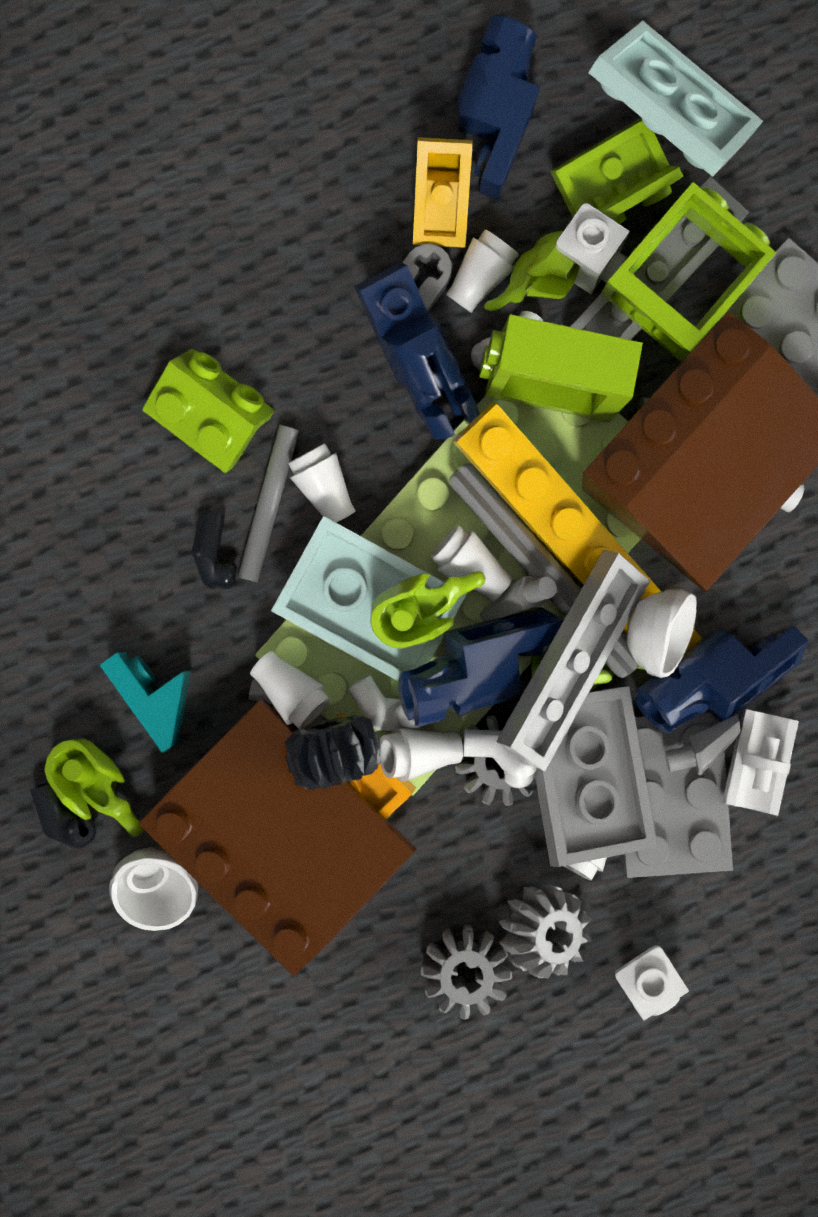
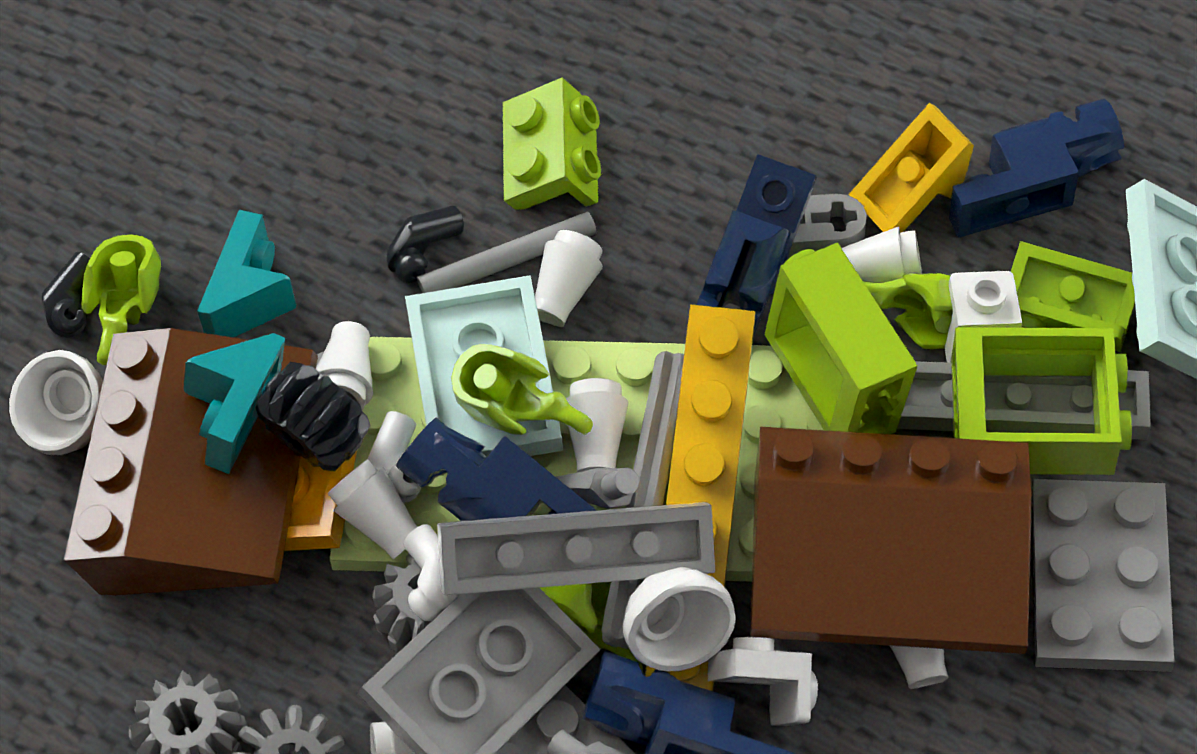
camera: 55 degrees right, 30 degrees down
(267, 774) = (232, 384): none -> teal slope
(733, 593) = (788, 674): none -> white bracket

